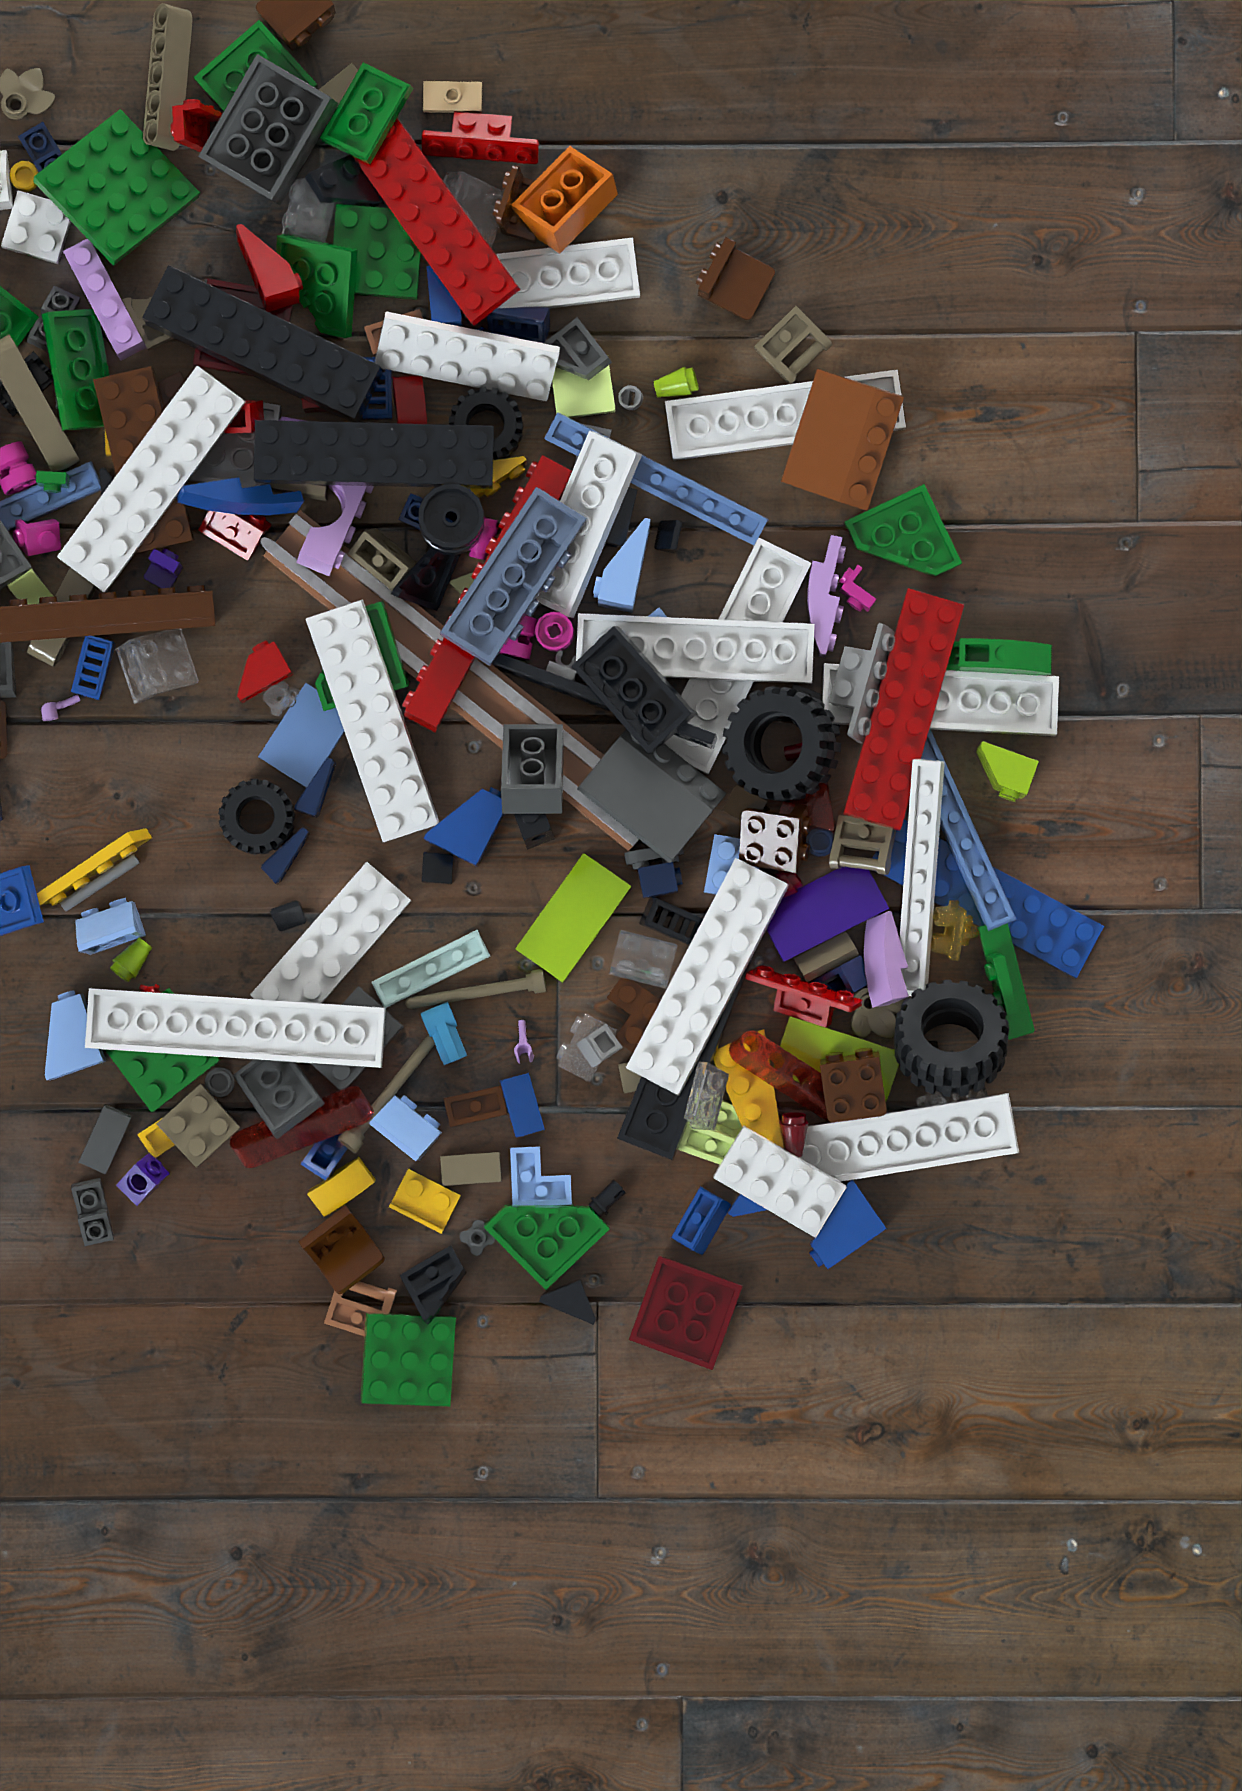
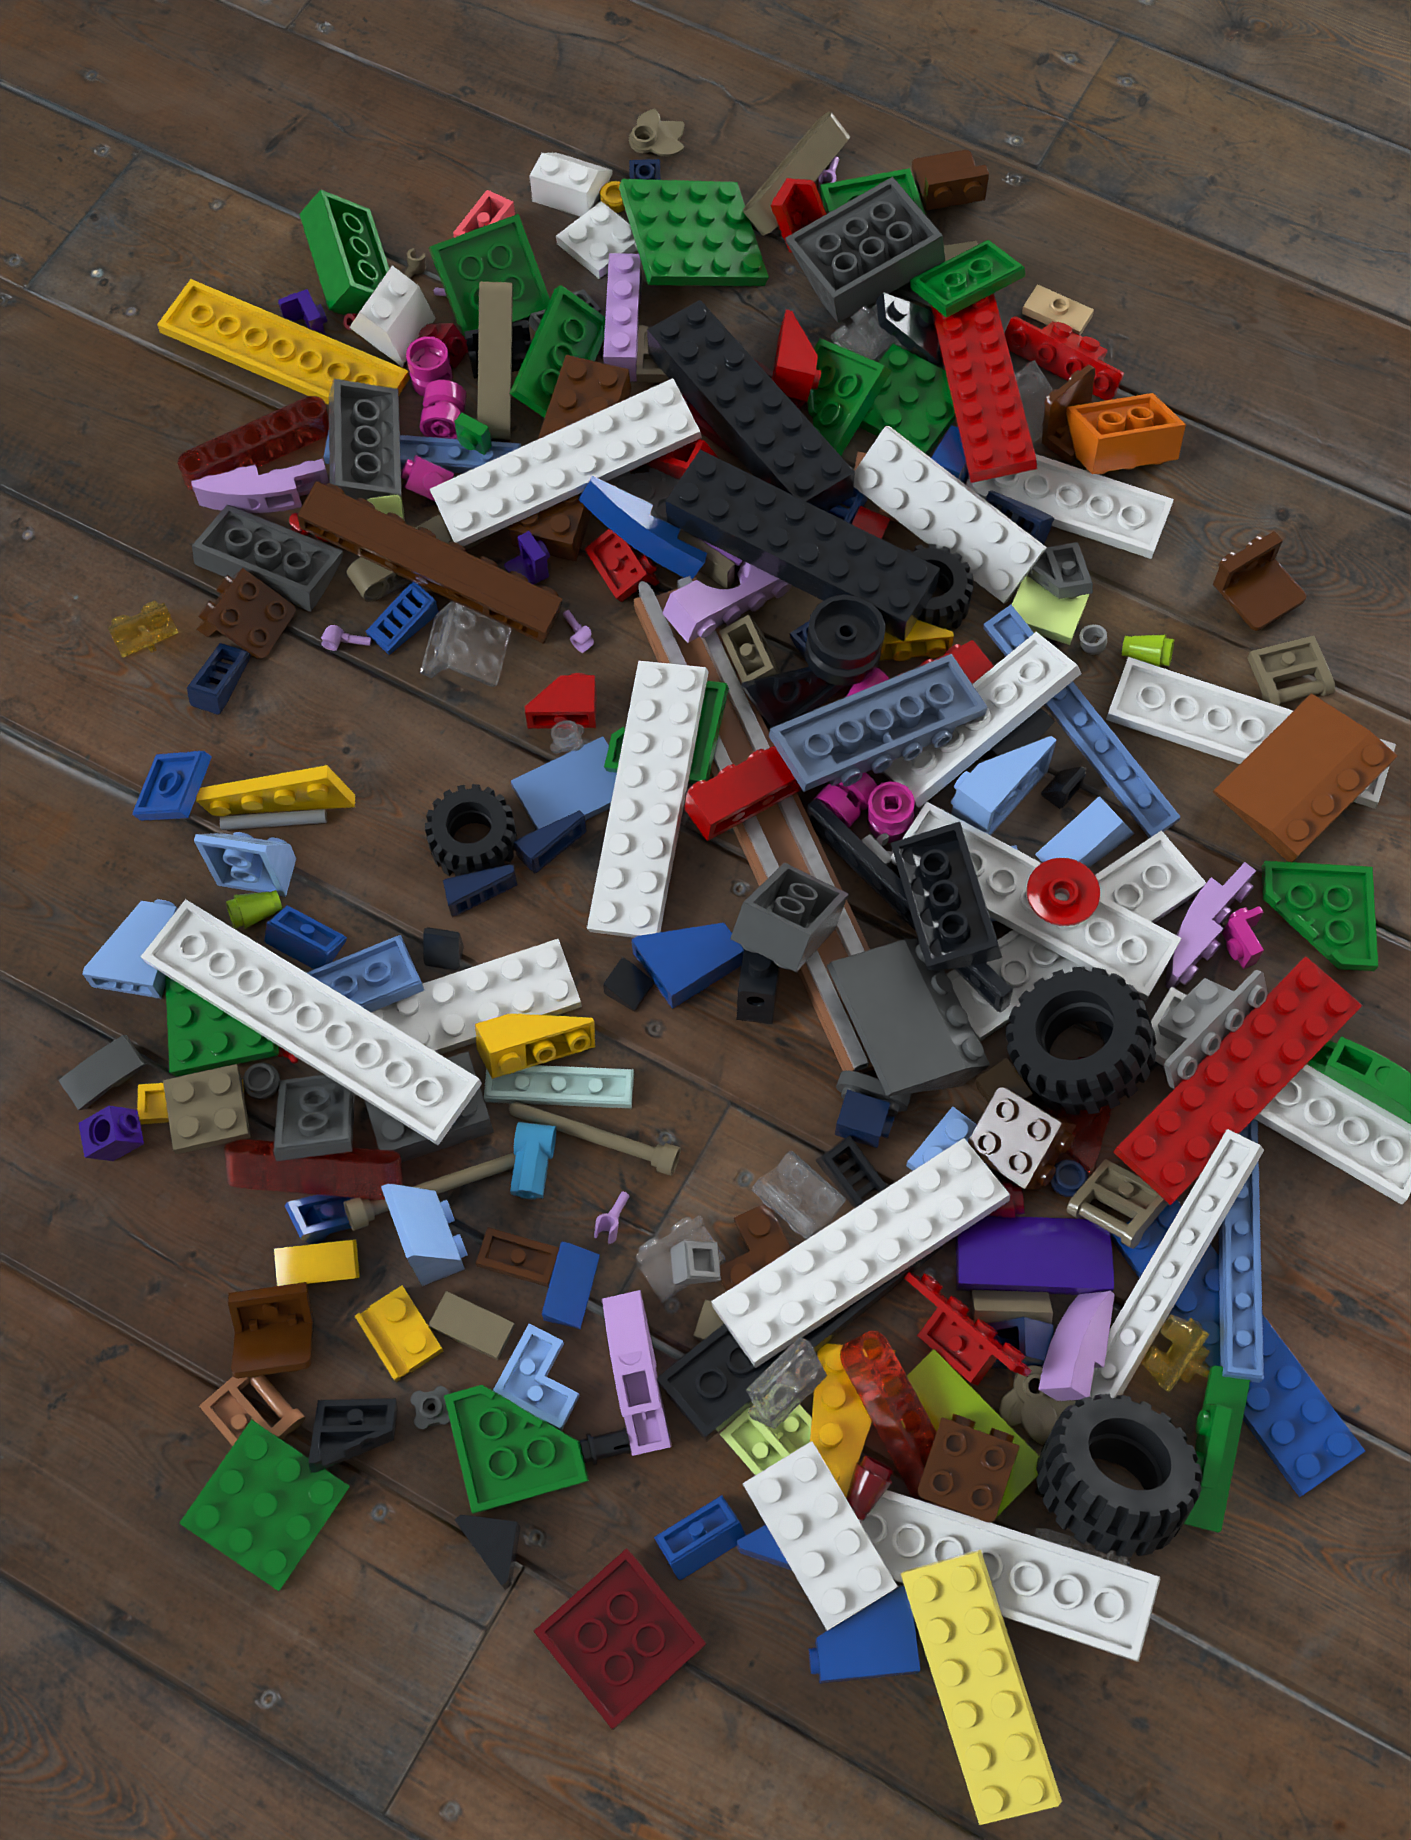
camera: 30 degrees right, 20 degrees down
(92, 1211) = (40, 1143): dark grey slope -> none
(181, 960) = (303, 938): none -> blue slope
(193, 57) = (829, 175): none -> lavender hand
(241, 606) = (582, 638): none -> lavender hand
(249, 966) = (373, 975): none -> medium blue tile
(390, 952) = (527, 1040): none -> yellow slope
(573, 917) = (746, 1115): lime slope -> none
(600, 1140) = (636, 1373): none -> lavender slope
(707, 577) = (1088, 836): none -> light blue slope
(718, 623) = (1064, 877): none -> red dish
(928, 1217) = (981, 1688): none -> light yellow plate
(1007, 770) = (1330, 1204): lime slope -> none

